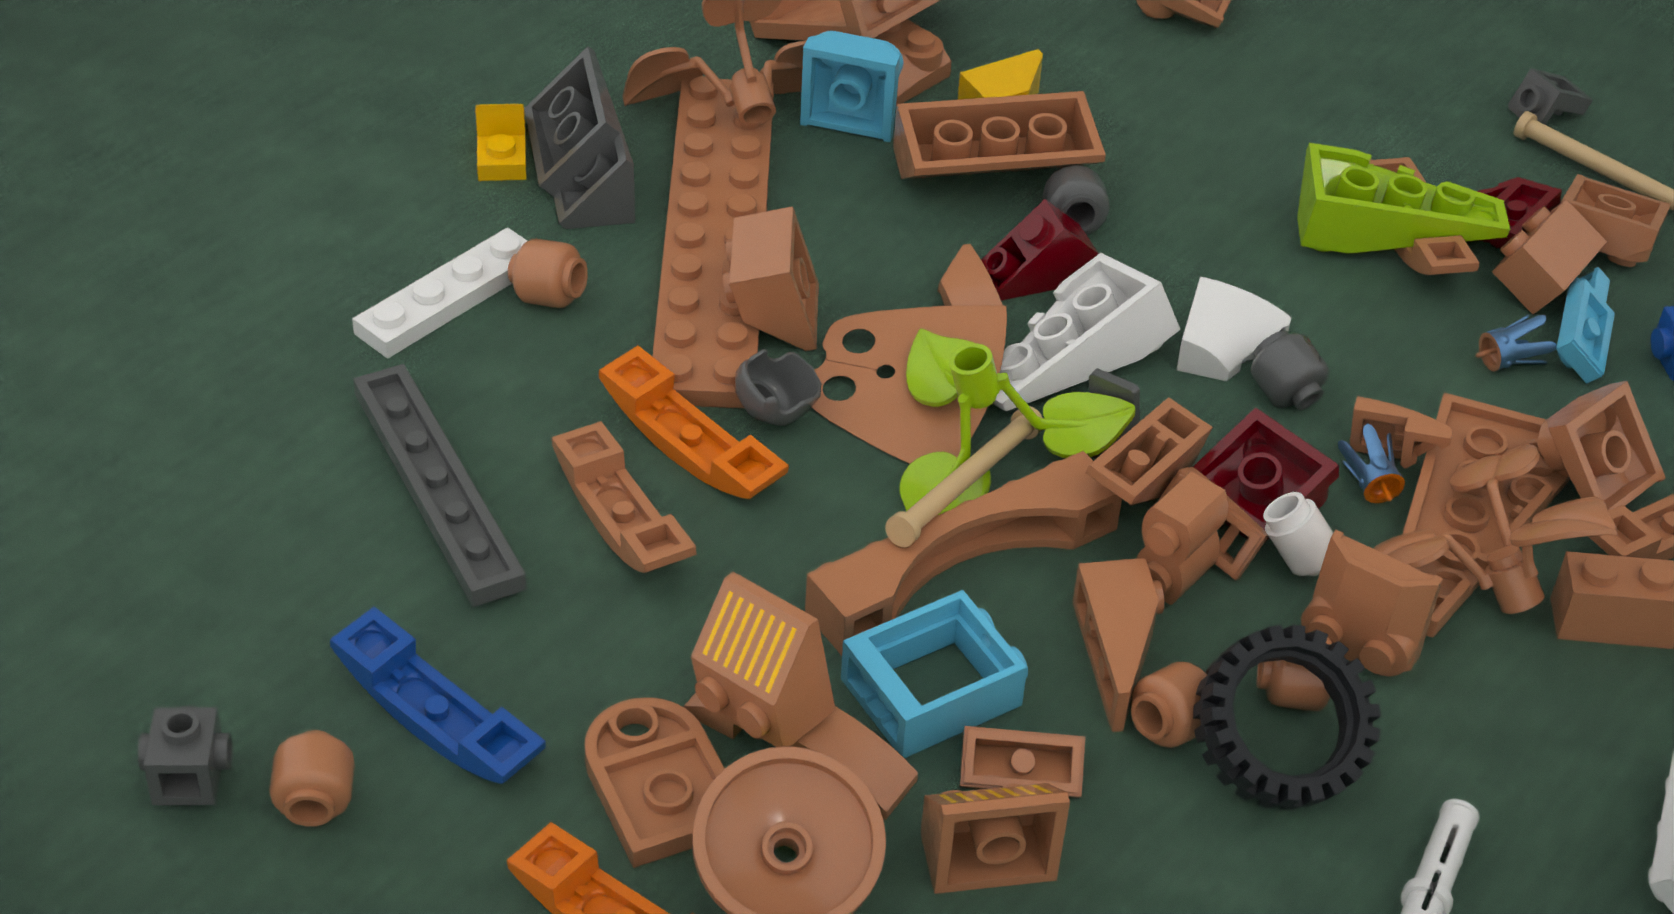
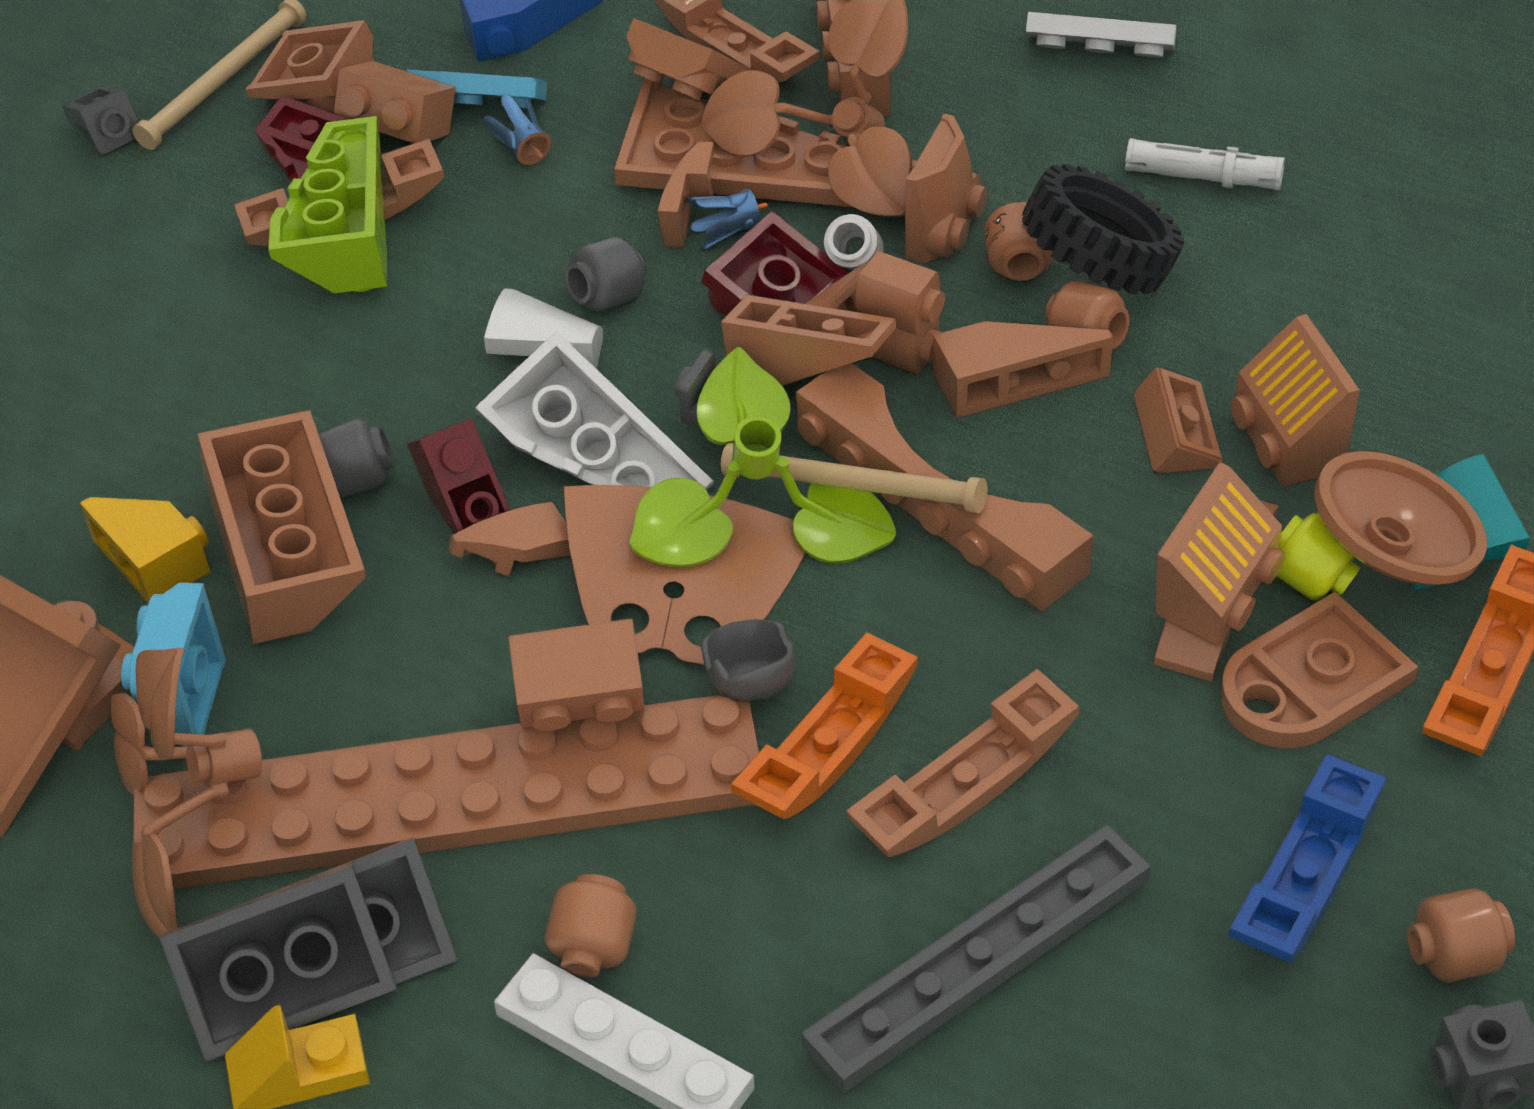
camera: 95 degrees left, 5 degrees up
(907, 725) = (1112, 430): medium azure window -> none

